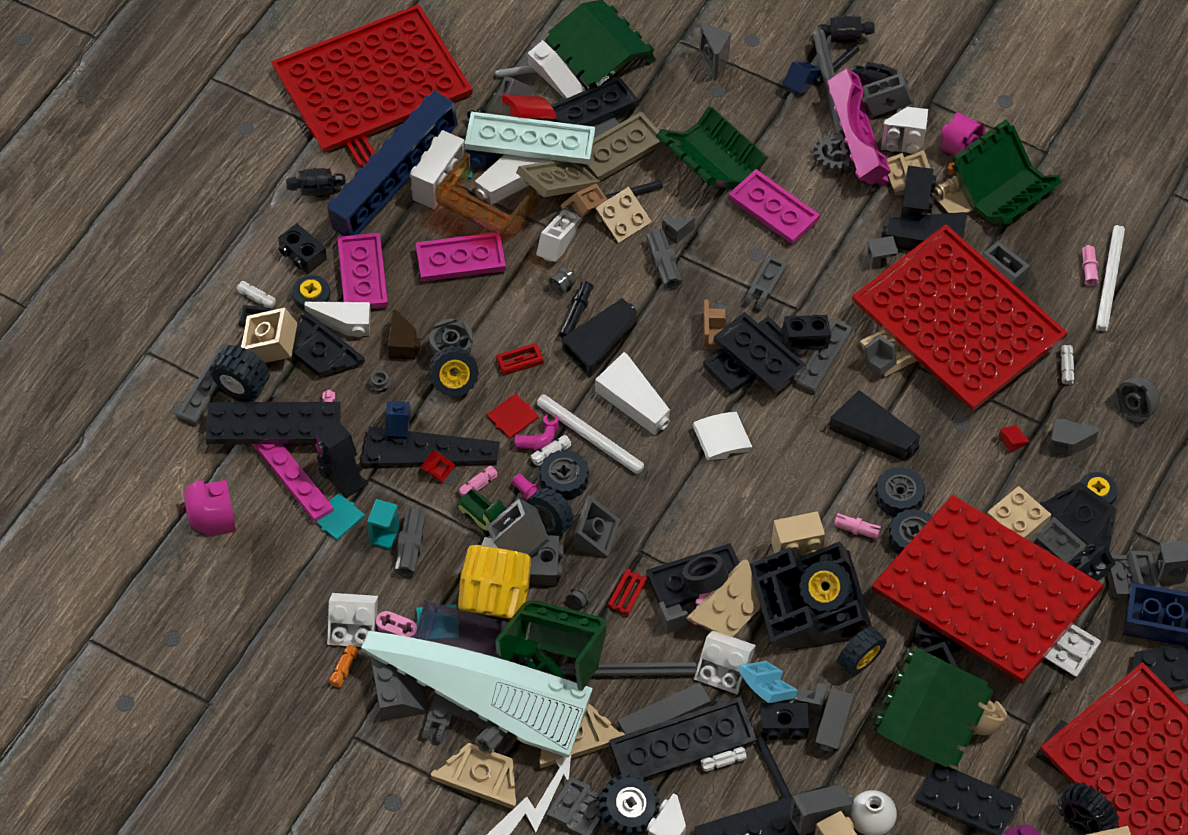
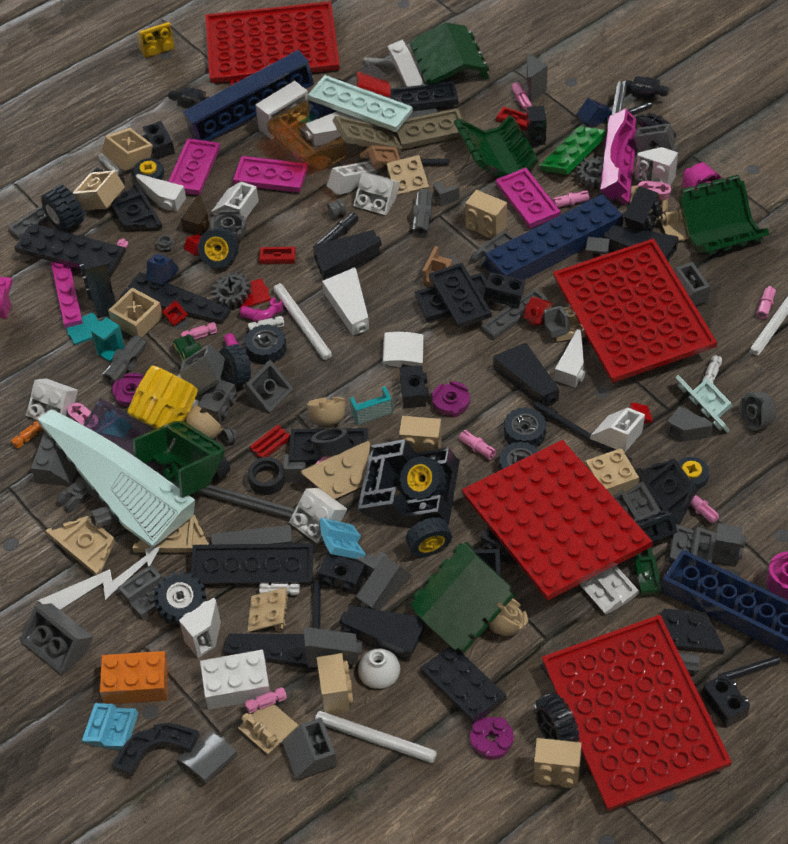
camera: 25 degrees right, 5 degrees down
(228, 113) = (155, 40): none -> yellow slope
(274, 272) = (126, 148): none -> tan brick
(396, 480) = (136, 313): none -> tan brick
(416, 372) = (191, 244): none -> red slope
(437, 588) = (122, 387): none -> magenta plate
(438, 302) = (239, 197): none -> white slope
(497, 410) = (232, 289): none -> dark grey gear
(547, 592) = (203, 422): none -> tan cylinder
(598, 248) = (376, 193): none -> white slope
(639, 648) = (266, 488): none -> black tyre
(678, 537) = (326, 412): none -> tan cylinder
(699, 109) = (505, 112): none -> red tile
(705, 75) = (521, 95): none -> bright pink axle
(722, 516) = (372, 408): none -> teal panel
(724, 787) = (268, 610): none -> tan hinge
(742, 243) = (486, 214): none -> tan brick
(746, 112) = (536, 125): none -> black brick
(757, 490) = (412, 386): none -> black brick
(799, 132) = (573, 150): none -> green plate
(803, 491) = (451, 407): none -> magenta plate
(823, 194) = (571, 199): none -> bright pink pin
(830, 253) = (553, 240): none -> dark blue brick
(855, 340) = (535, 310): none -> red brick
(862, 769) = (384, 629): none -> black slope
(913, 159) = (657, 187): none -> bright pink beam
(917, 398) = (570, 367): none -> white slope
(920, 466) = (552, 414): none -> black bar
(1002, 463) = (620, 429): none -> white slope
(1080, 398) = (710, 398): none -> light aqua bracket
(1103, 621) = (647, 574): none -> dark green hinge
(1129, 529) = (702, 507): none -> bright pink axle

